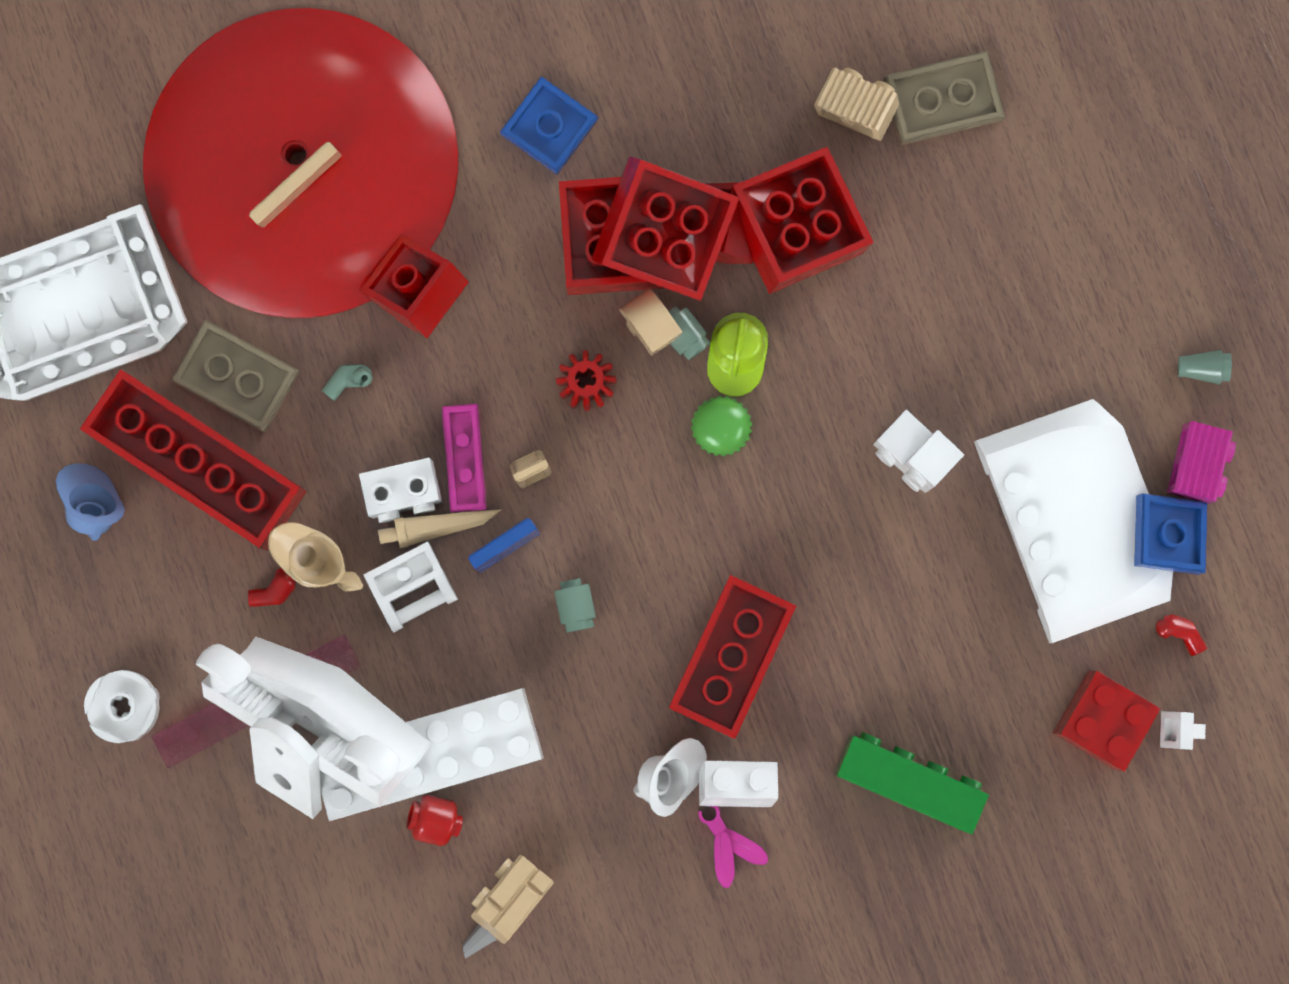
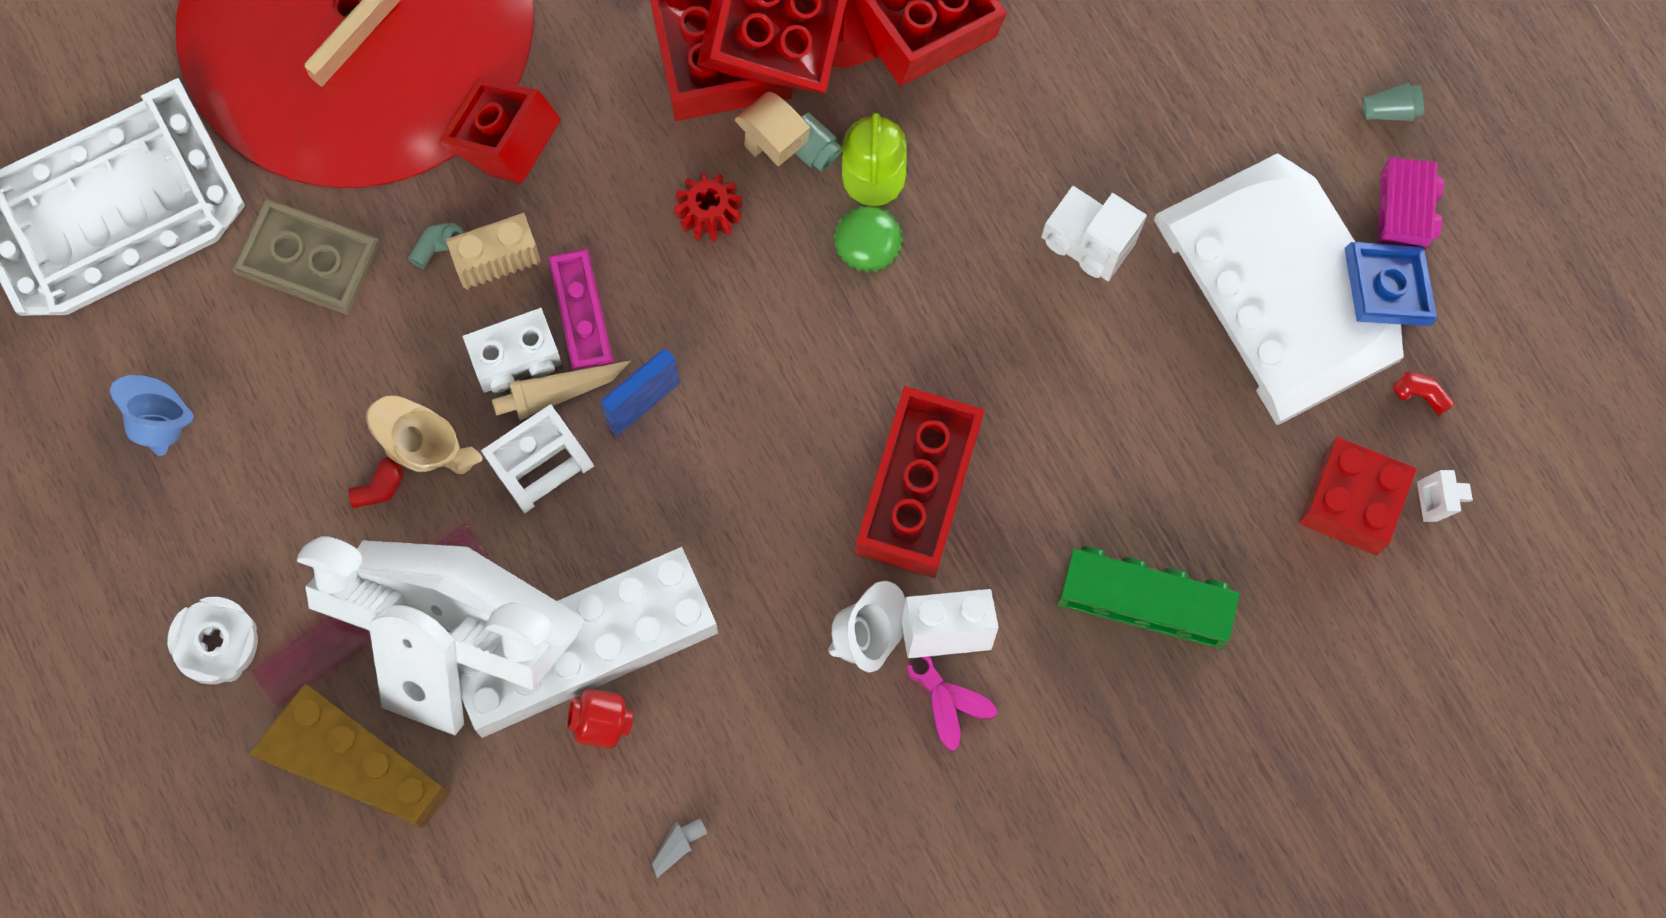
camera: 15 degrees left, 10 degrees down
(192, 459) = (267, 346): red brick -> none
(221, 824) = (338, 753): none -> pearl gold wedge
(395, 396) = (493, 251): none -> tan brick
(511, 899) = (702, 794): tan brick -> none
(530, 469) = (660, 309): tan slope -> none
(575, 605) = (731, 453): sand green brick -> none

